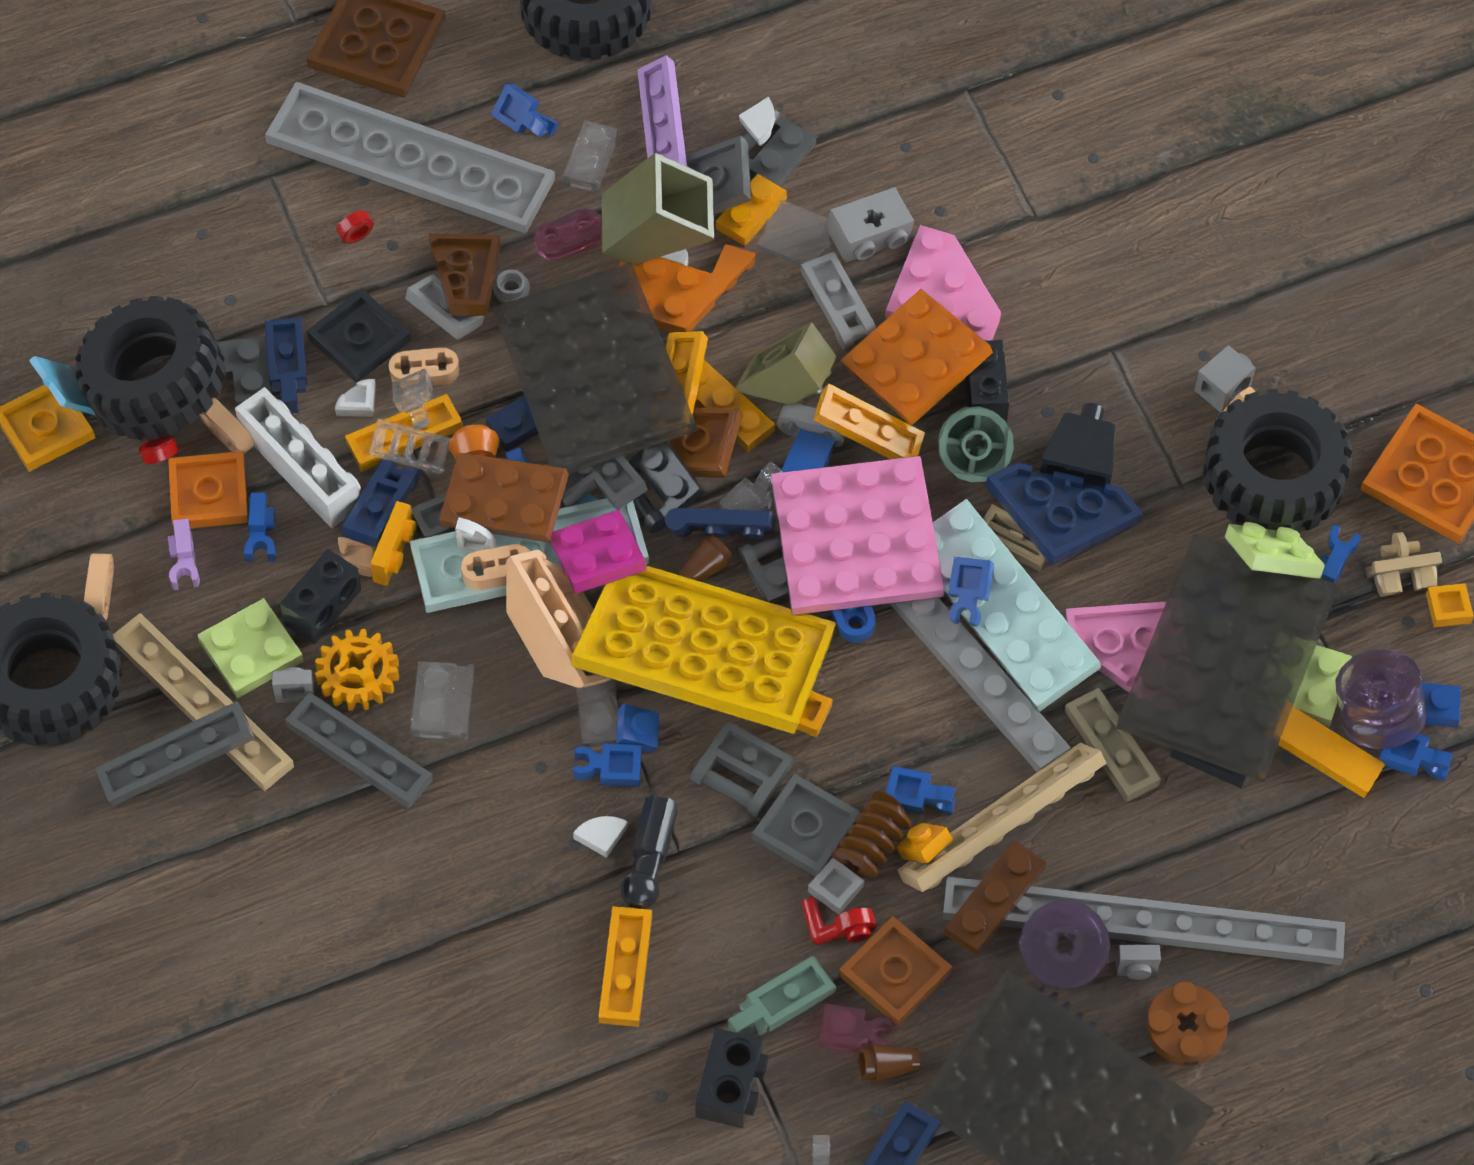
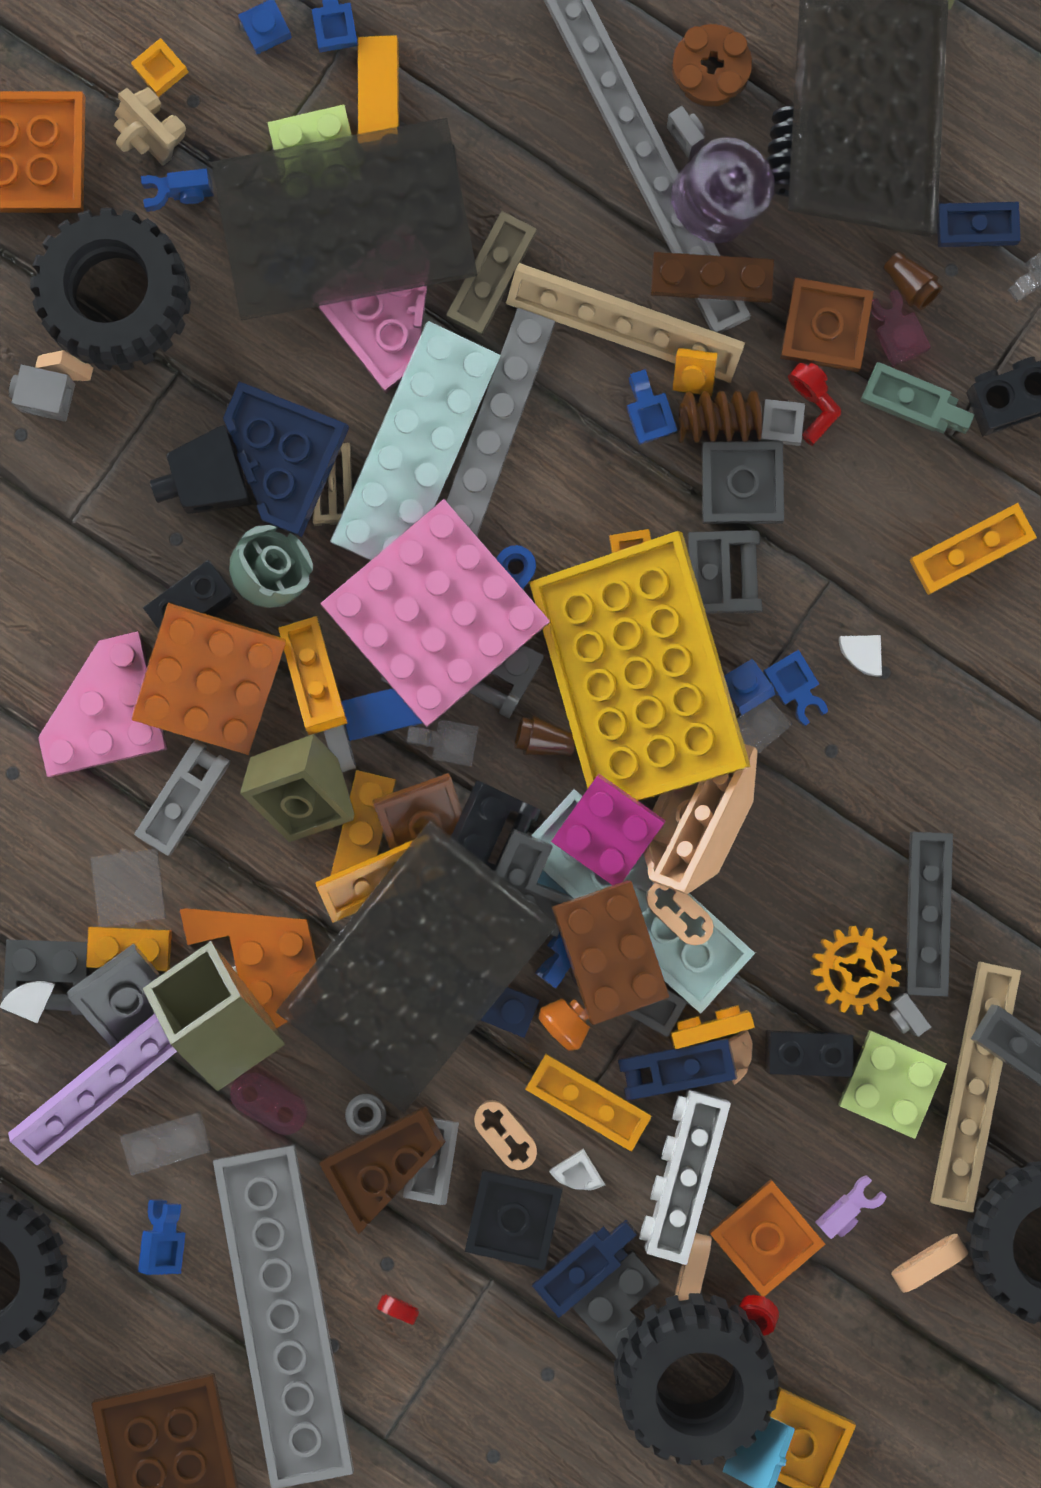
camera: 120 degrees left, 25 degrees up
(260, 521) = (768, 1165): blue plate -> none
(379, 438) = (589, 1073): clear slope -> none
(411, 393) = (548, 1120): clear plate -> none
(442, 700) = (828, 877): clear plate -> none
(473, 536) = (666, 949): white tile -> none
(649, 850) = (855, 598): black piece -> none
(720, 521) = (499, 745): dark blue plate -> none
(870, 225) = (58, 813): light grey brick -> none
(970, 583) = (426, 476): blue plate -> none
(1274, 550) = (213, 236): yellowish green plate -> none
(1381, 699) = (282, 64): clear purple wheel -> none

